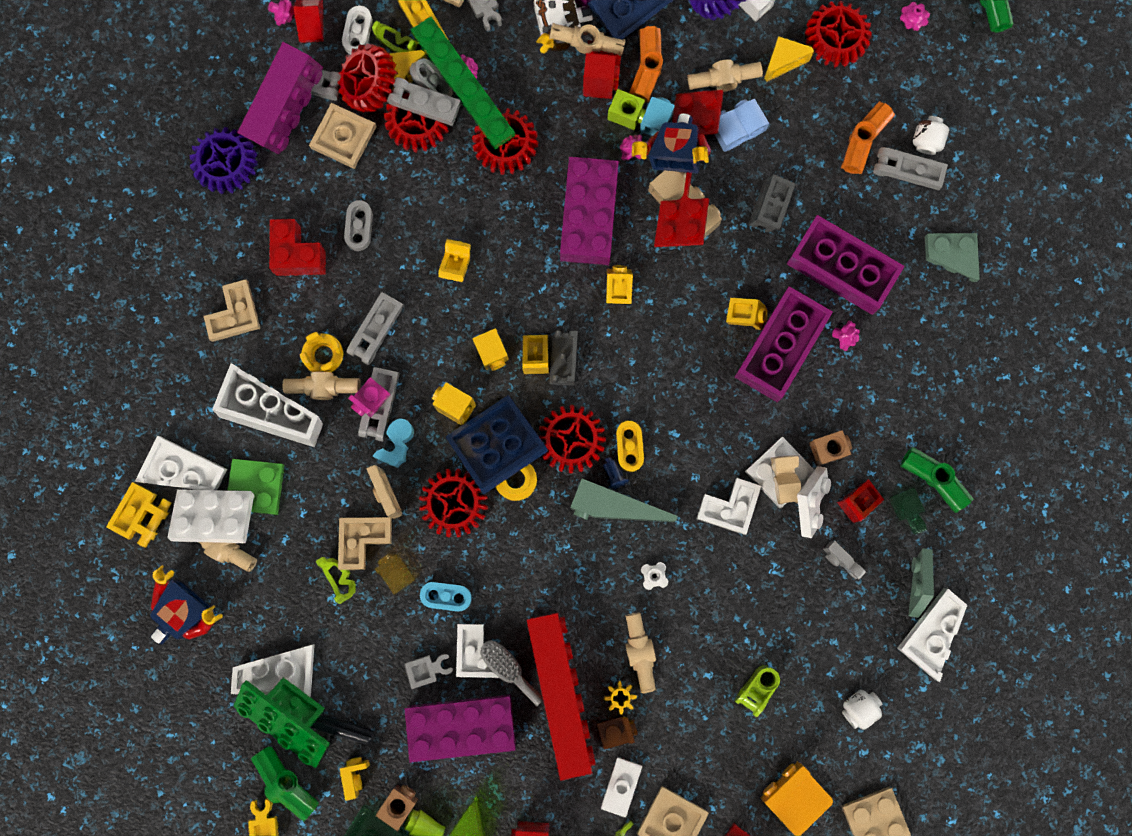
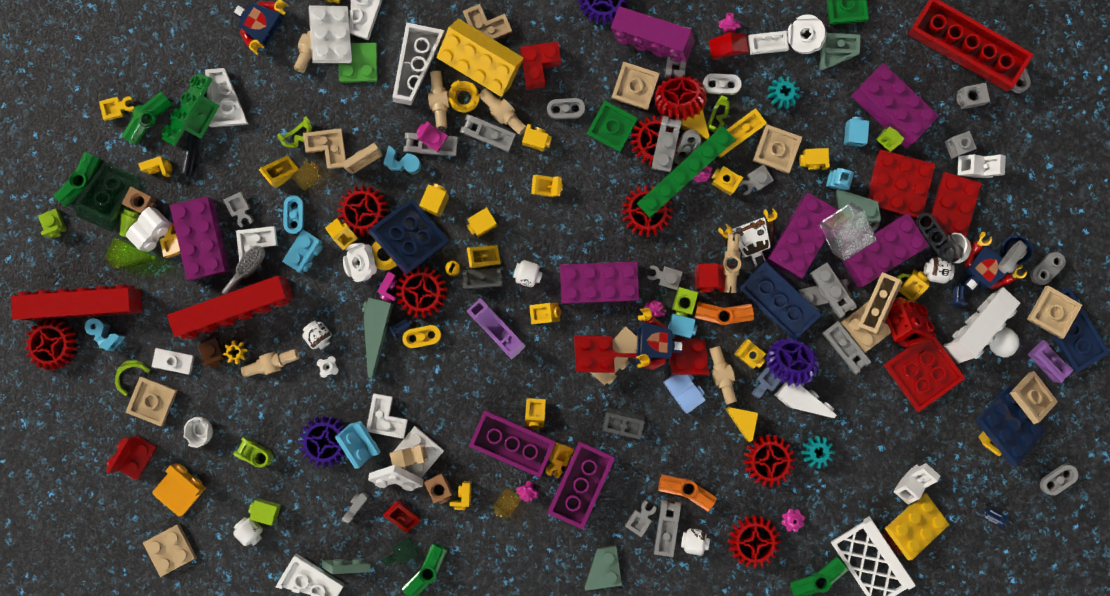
camera: 85 degrees right, 5 degrees up
(274, 321) = (479, 57): none -> yellow brick
(349, 305) = (502, 111): none -> tan pin
(384, 608) = (279, 171): none -> yellow slope
(390, 171) = (612, 126): none -> green plate
(391, 267) = (536, 138): none -> yellow brick
(438, 798) = (148, 229): none -> white brick
(460, 769) = (169, 243): none -> yellow plate
(480, 48) = (727, 187): none -> yellow brick
(480, 533) = (341, 234): none -> yellow brick
(496, 590) = (303, 251): none -> medium azure bracket
(521, 502) = (367, 266): none -> white plate
(543, 402) = (456, 269): none -> yellow hinge
(555, 481) = (388, 284): none -> dark pink bracket
(565, 299) = (527, 273): none -> white head
(592, 128) = (668, 278): none -> light grey plate
(611, 584) = (316, 335): none -> white head
(634, 346) = (496, 328): none -> medium lavender arch
(699, 46) = (744, 351): none -> yellow brick
(722, 762) = (198, 431): none -> white hair
(739, 23) = (766, 382): none -> sand blue plate
(758, 580) = (315, 438): none -> dark purple gear
(762, 545) = (357, 444): none -> medium azure bracket
(809, 288) = (559, 457): none -> yellow plate
(838, 684) = (264, 511): none -> lime brick
(840, 415) = (464, 493): none -> yellow bracket
(858, 365) = (506, 503): none -> clear yellow bracket
(897, 201) = (639, 520): none -> light grey plate
(925, 71) = (754, 550): none -> red gear

